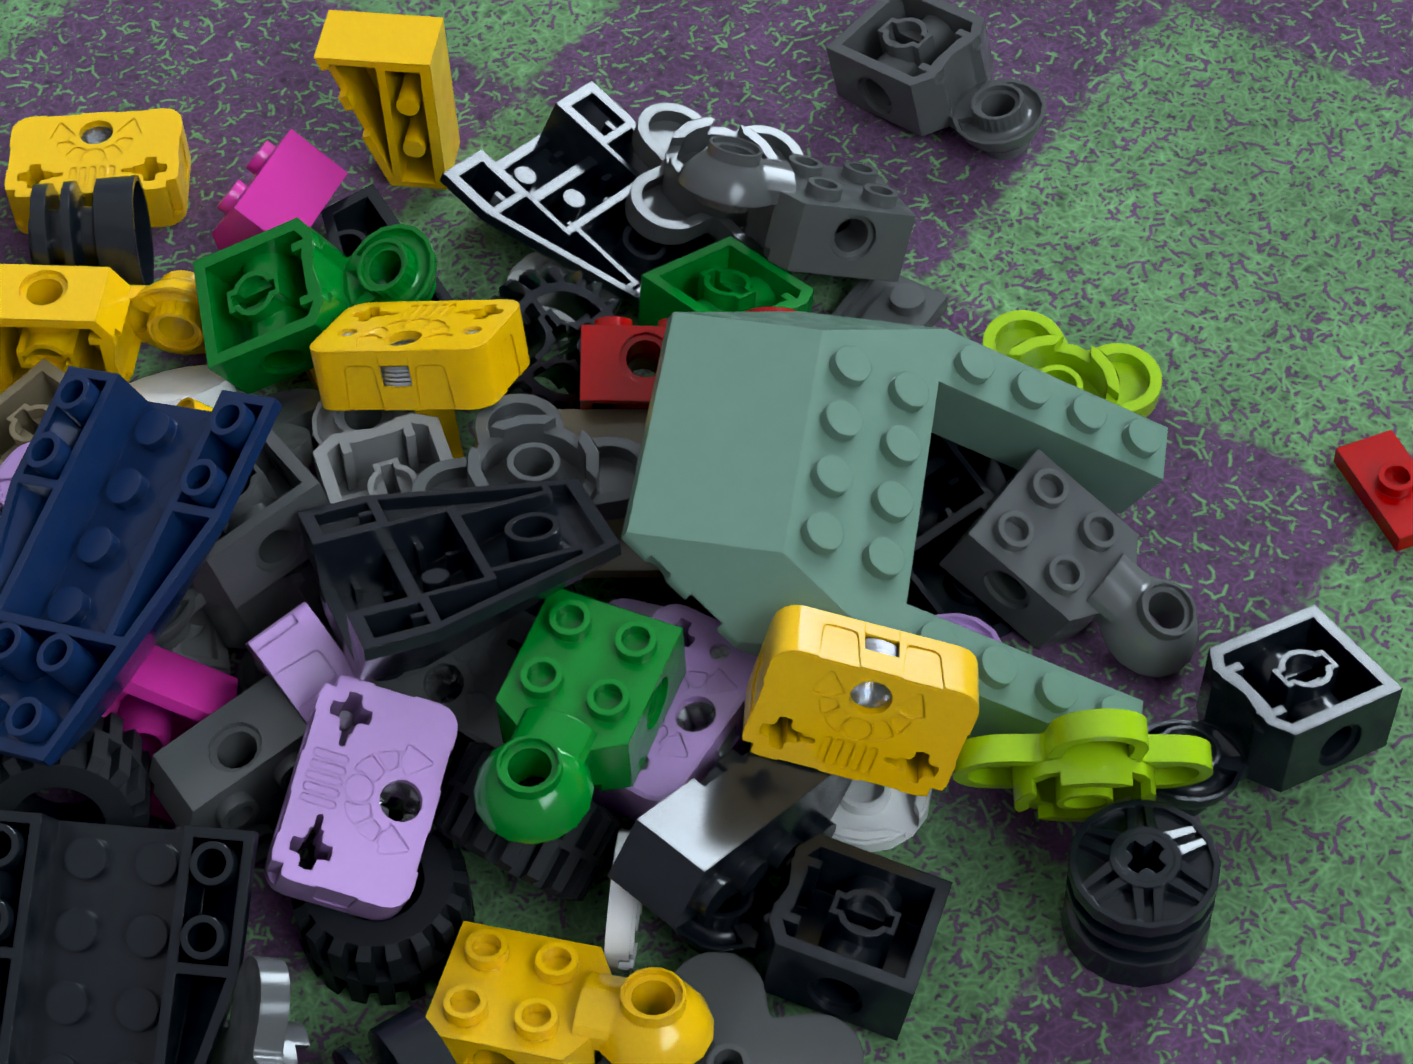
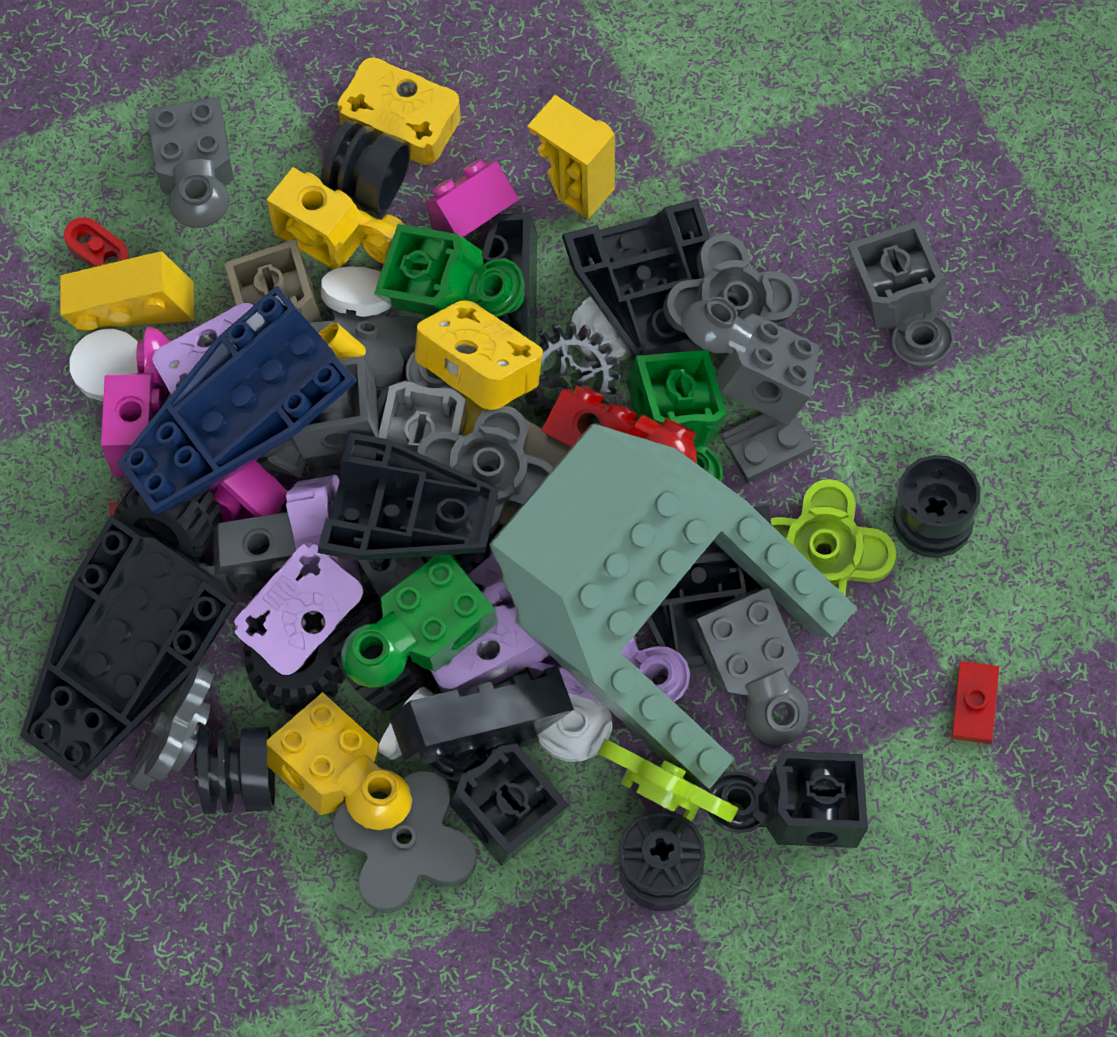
camera: 30 degrees right, 15 degrees up
(860, 700) = (565, 692): yellow axle -> none
(1168, 277) = (944, 490): none -> black wheel

